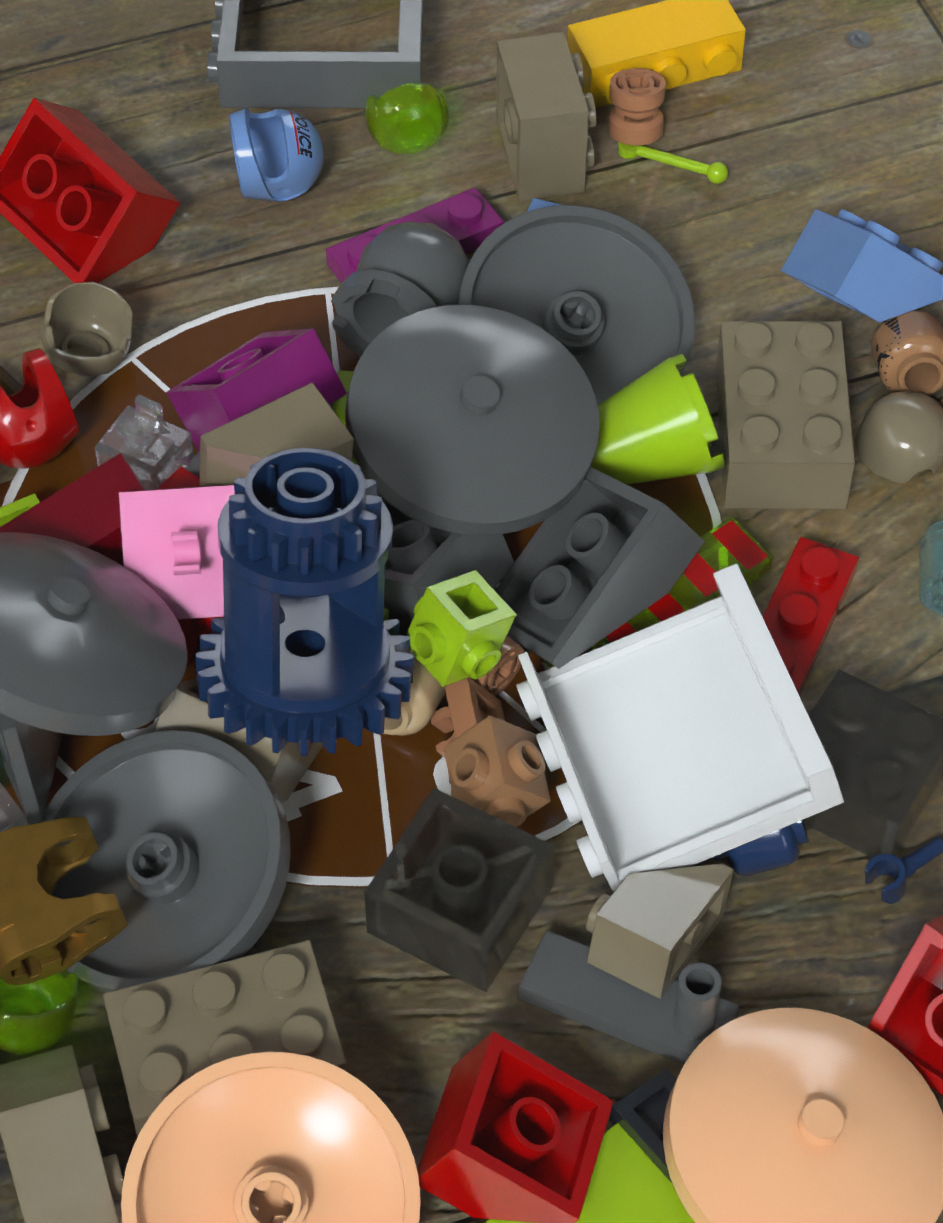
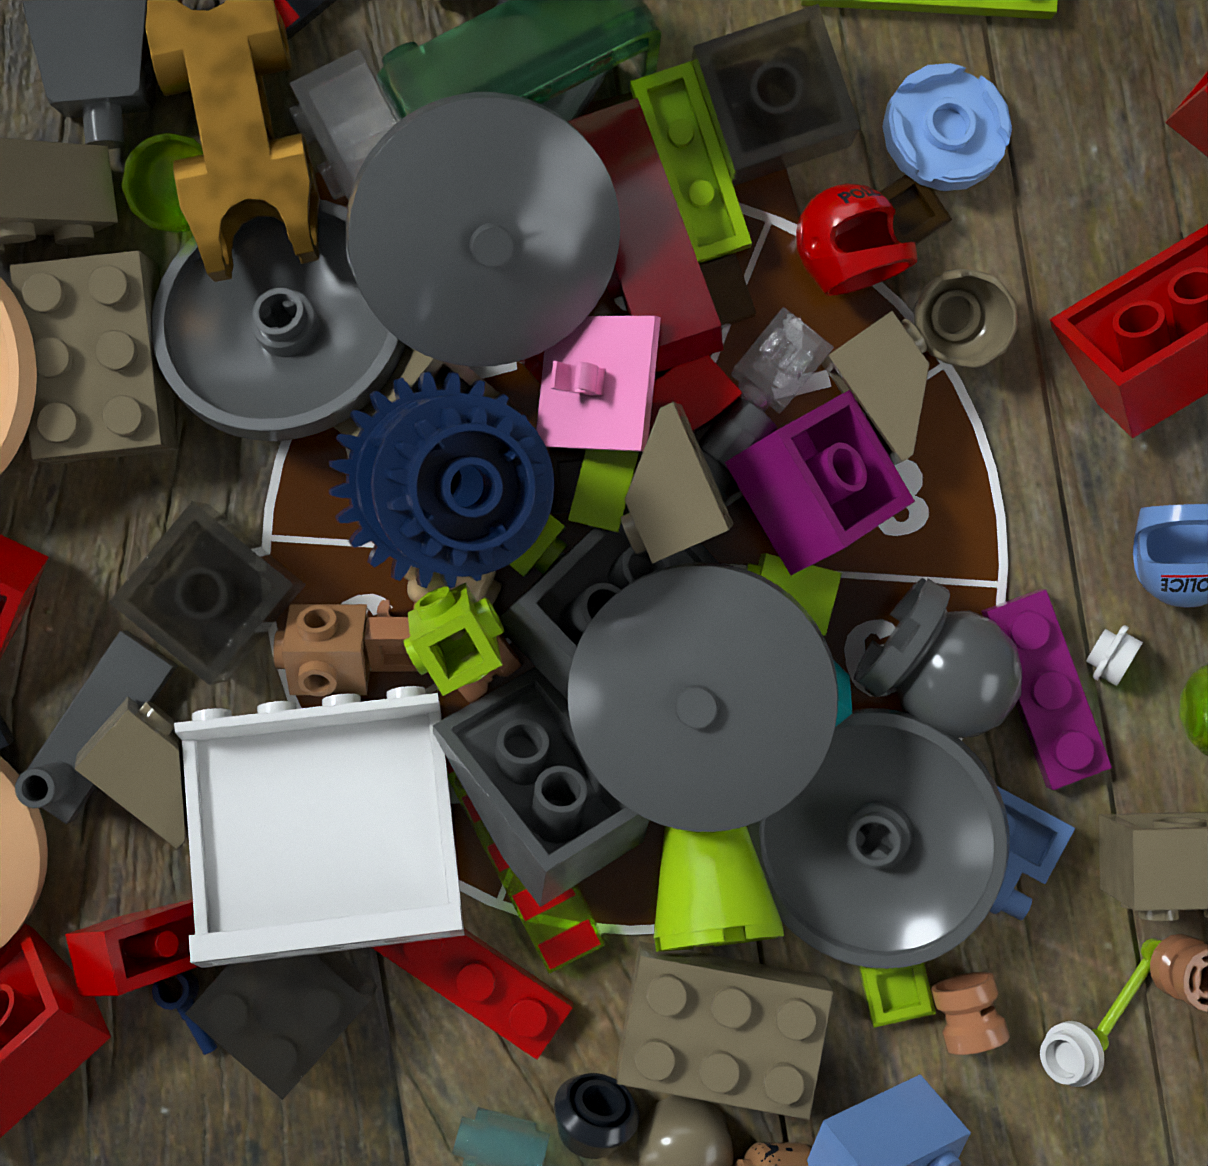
camera: 100 degrees right, 35 degrees up
(150, 369) = (887, 379): none -> dark tan slope
(375, 198) = (1113, 655): none -> white plate
(714, 303) = (896, 993): none -> lime tile
(716, 248) = (970, 1013): none -> nougat wheel
(731, 179) = (1072, 1054): none -> white plate
(851, 907) = (132, 949): none -> red slope
(896, 498) = (595, 1115): none -> black cone

